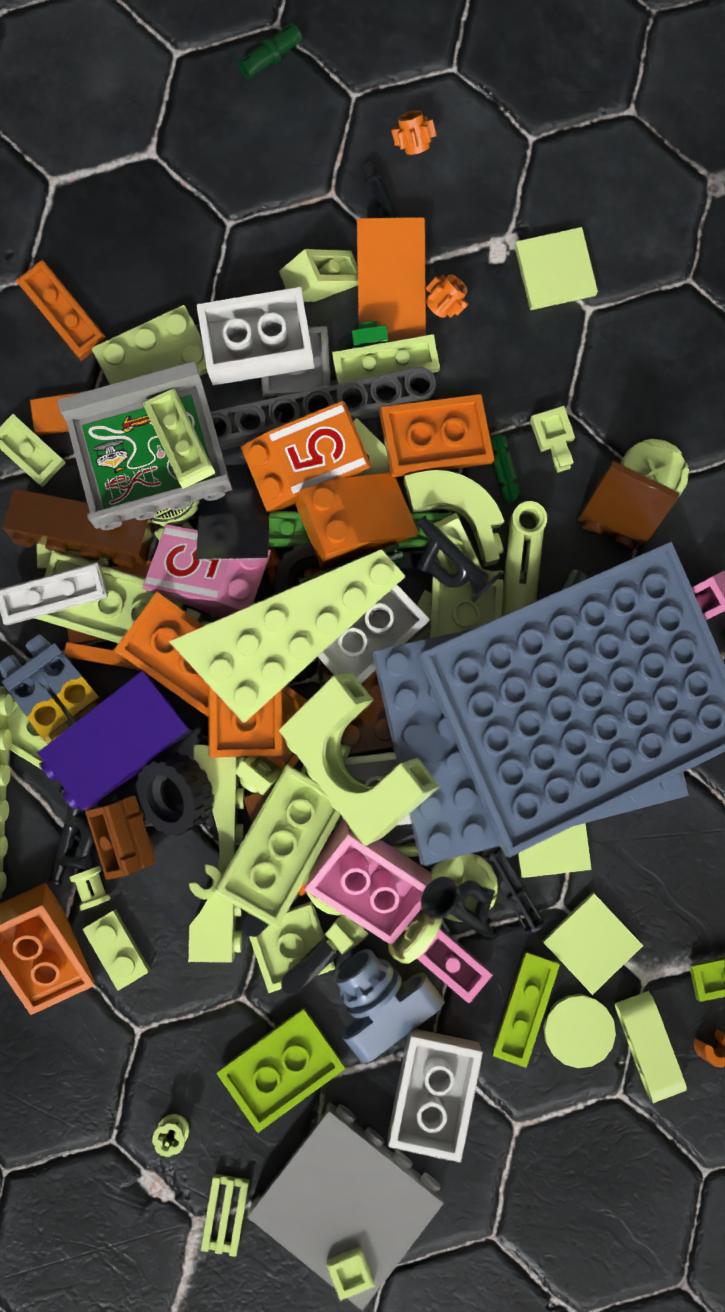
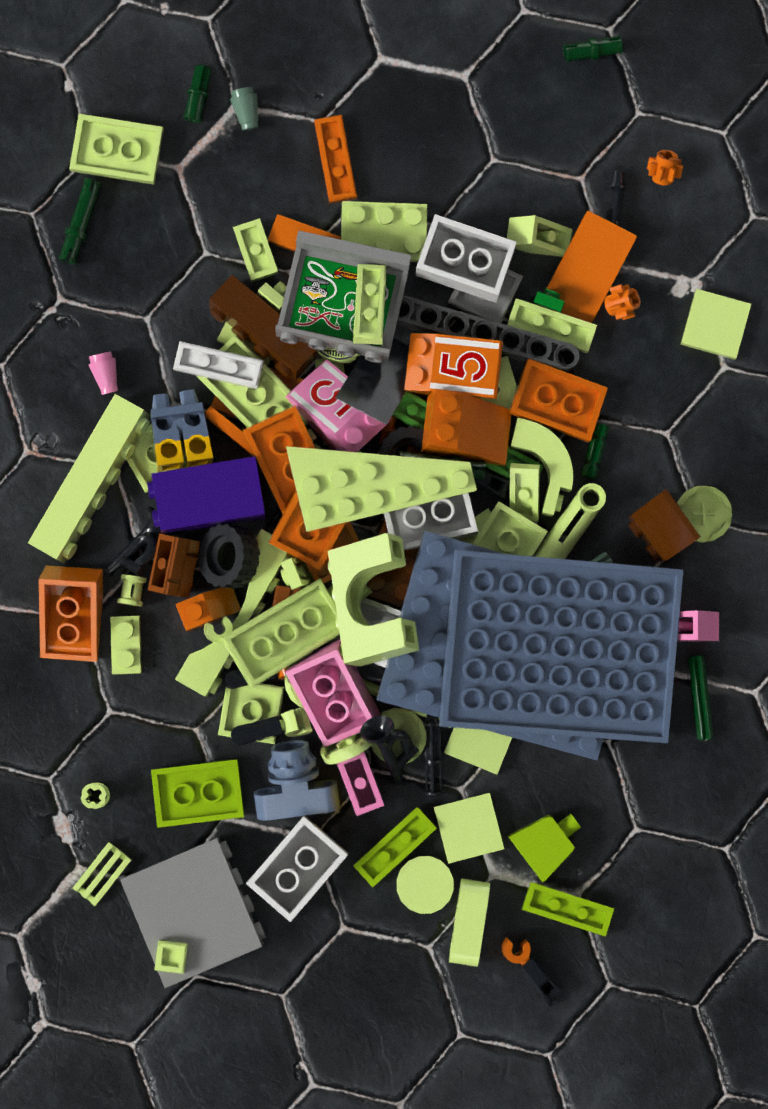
camera: 30 degrees right, 0 degrees up
(70, 488) = (273, 296): none -> yellowish green tile
(182, 862) = (208, 608): none -> orange slope
(466, 569) = (529, 521): black piece -> none
(553, 433) = (646, 444): yellowish green plate -> none
(684, 916) = (545, 843): none -> lime torso

